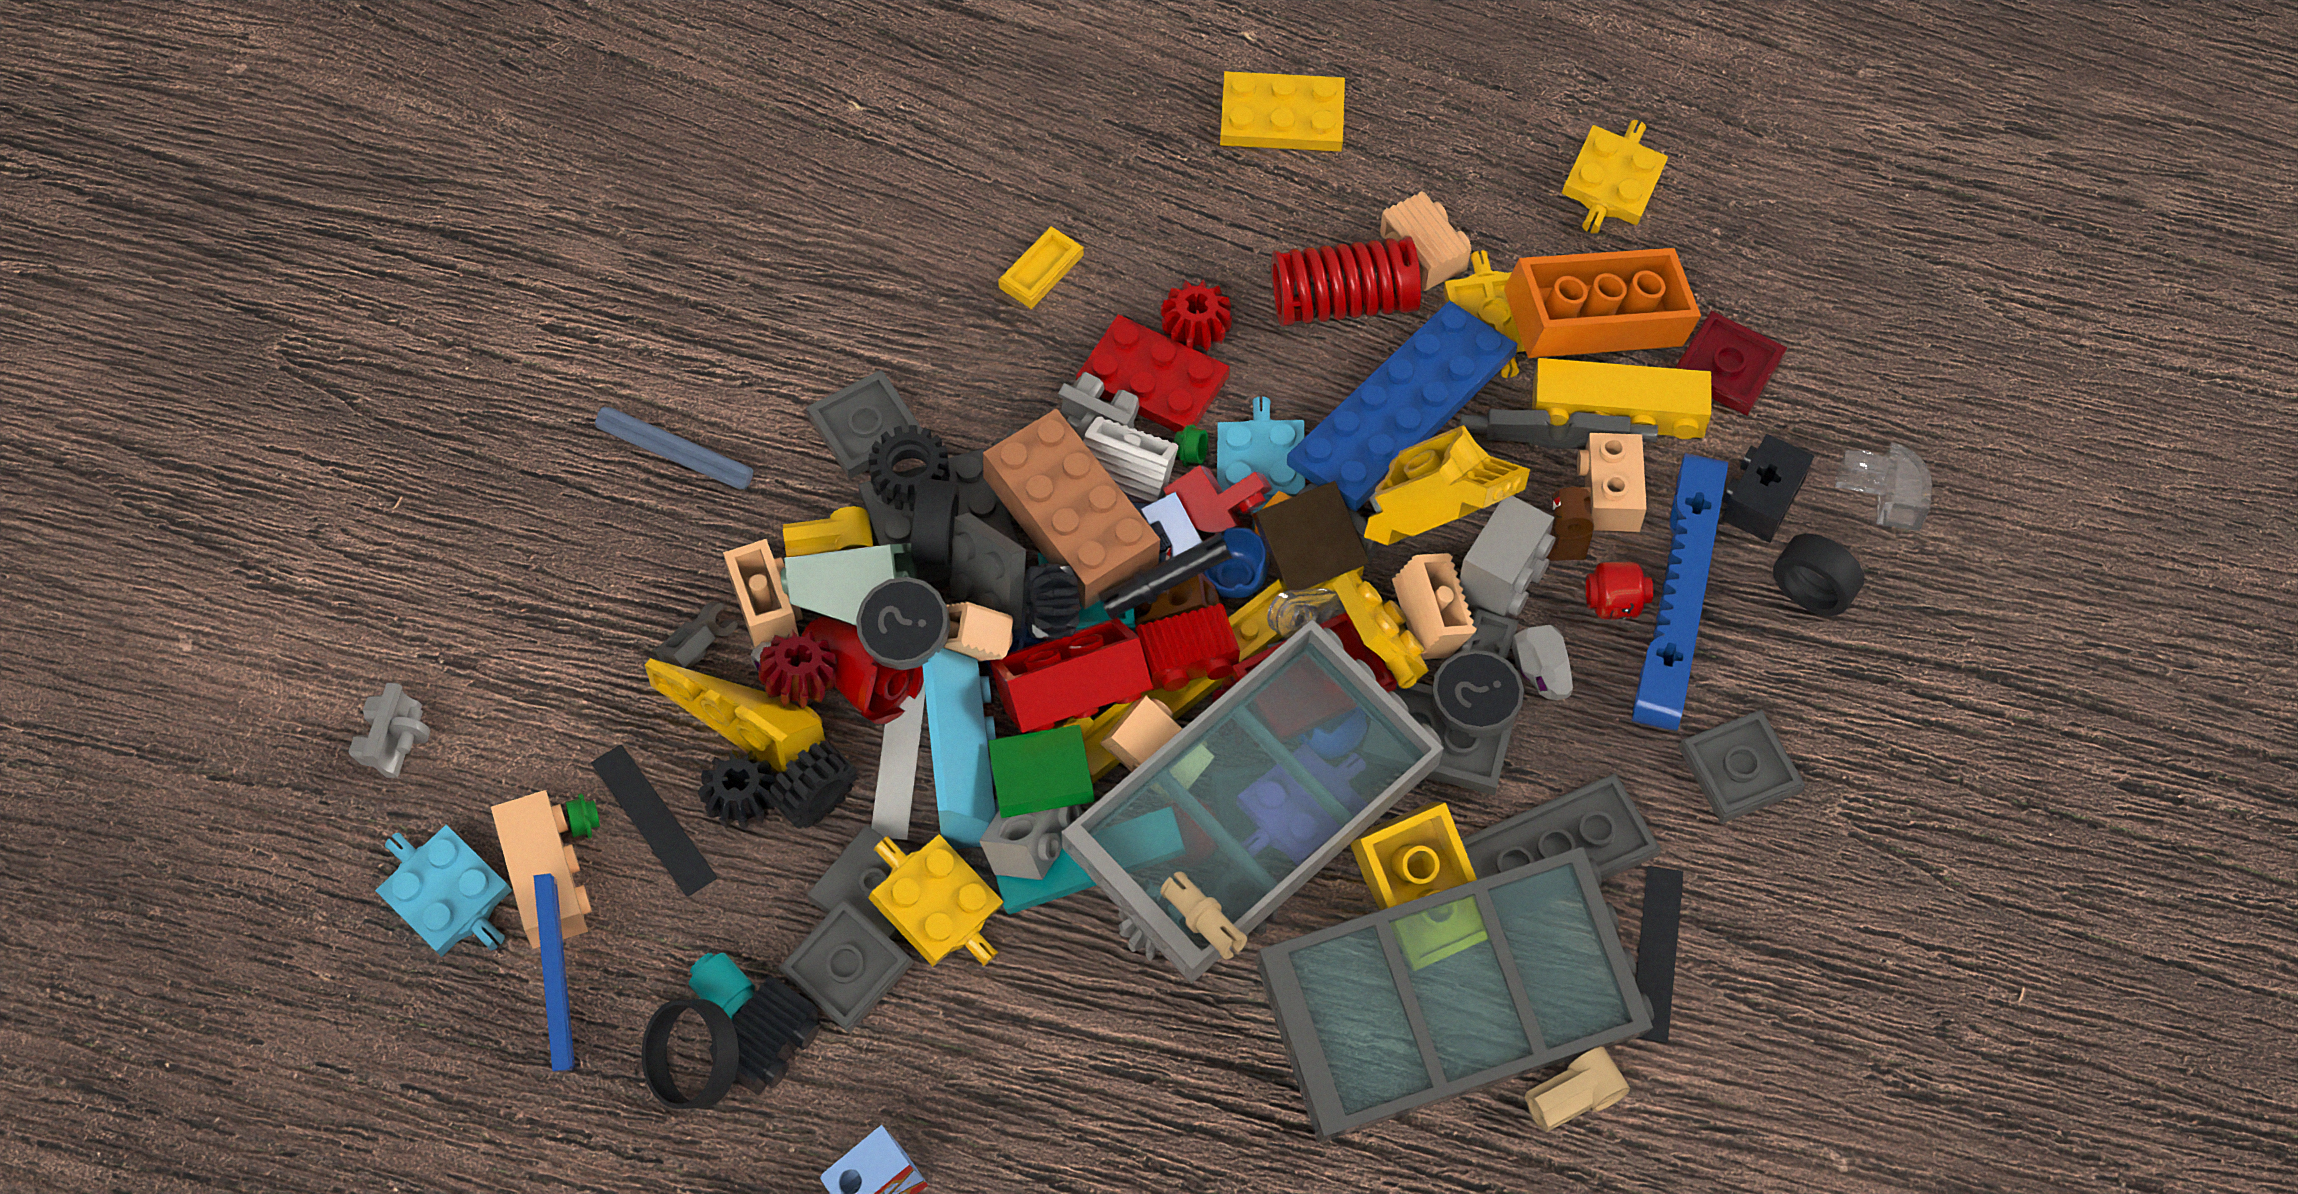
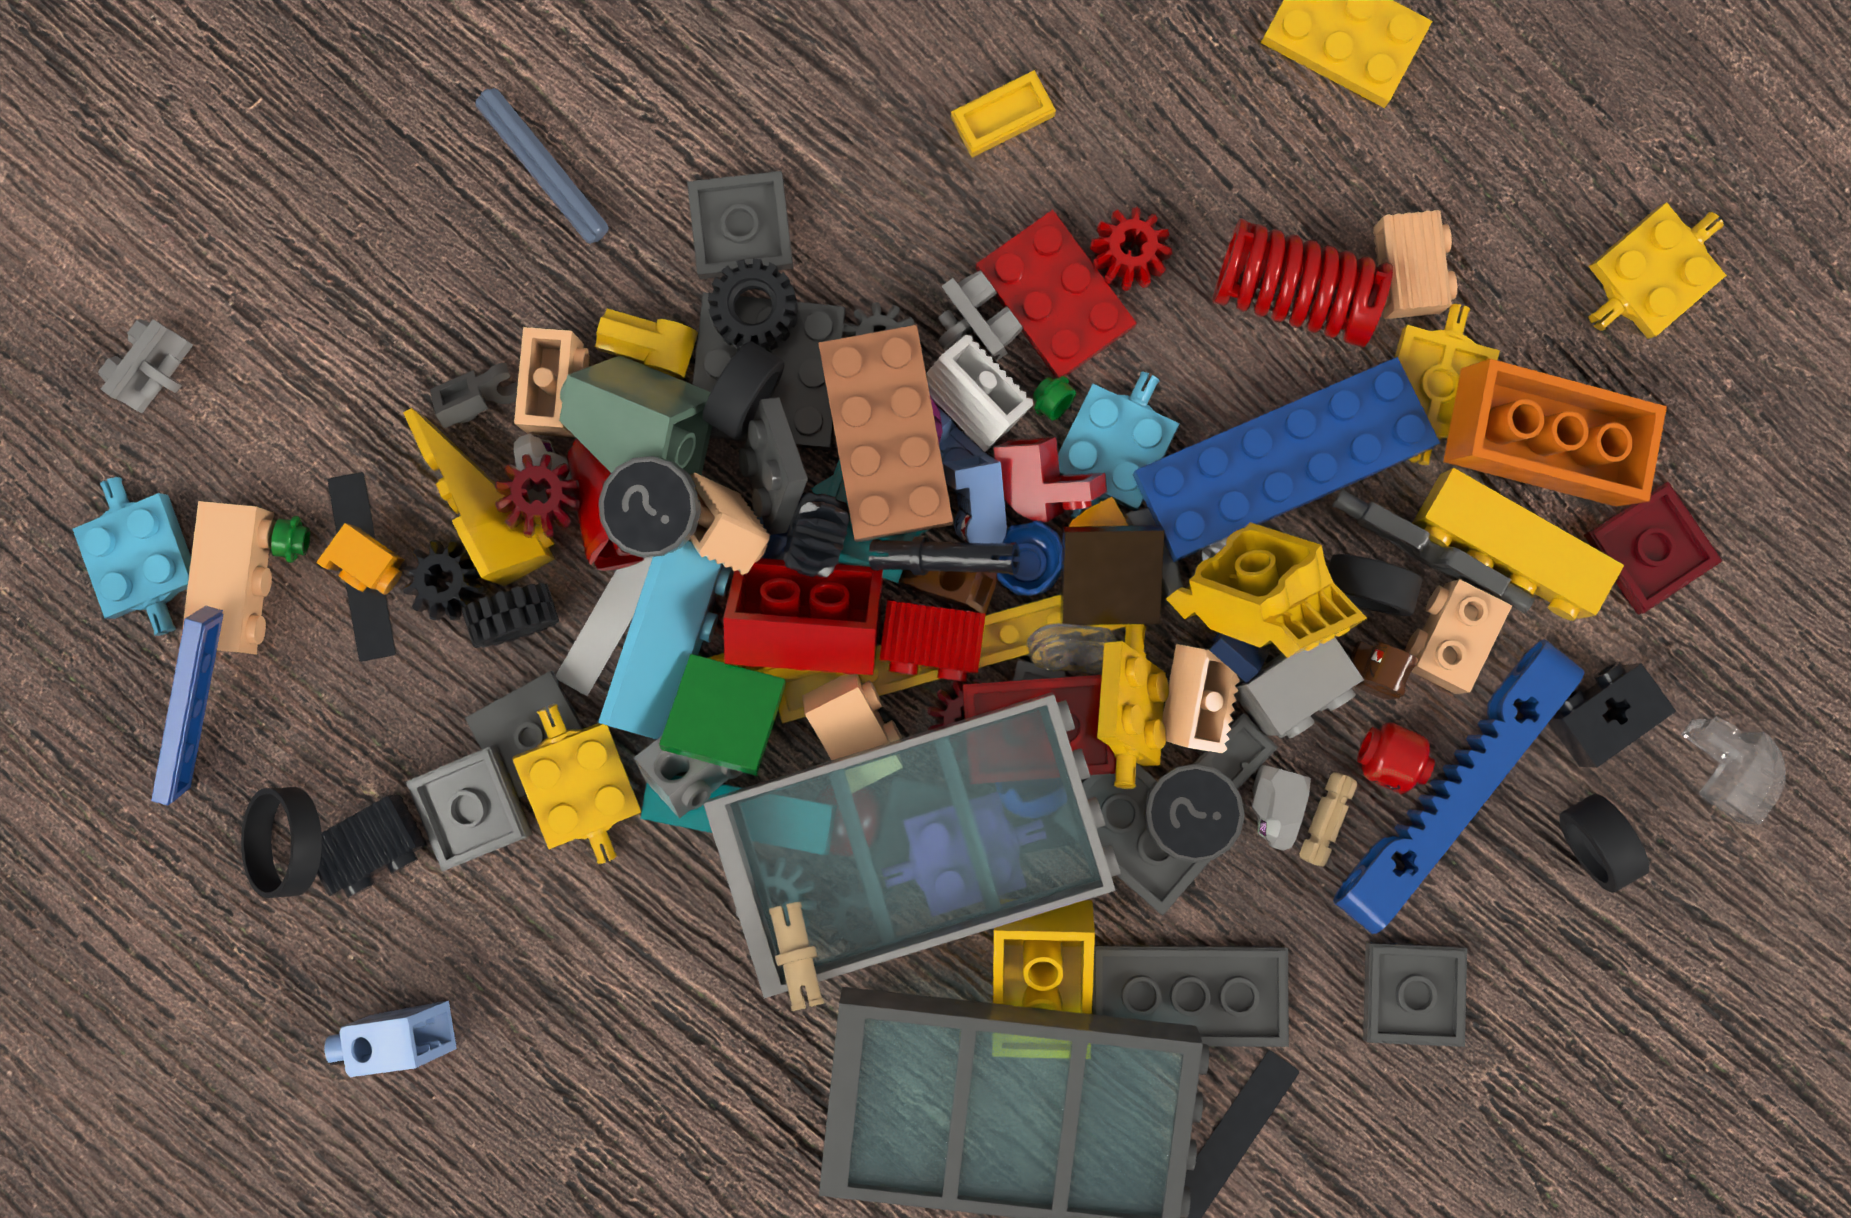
camera: 25 degrees right, 25 degrees up
(657, 802) = (362, 560): none -> light orange brick
(721, 982) = (347, 777): teal brick -> none
(1445, 547) = (1239, 656): none -> dark blue slope
(1539, 453) = (1376, 584): none -> black tyre
(1591, 662) = (1328, 819): none -> tan axle

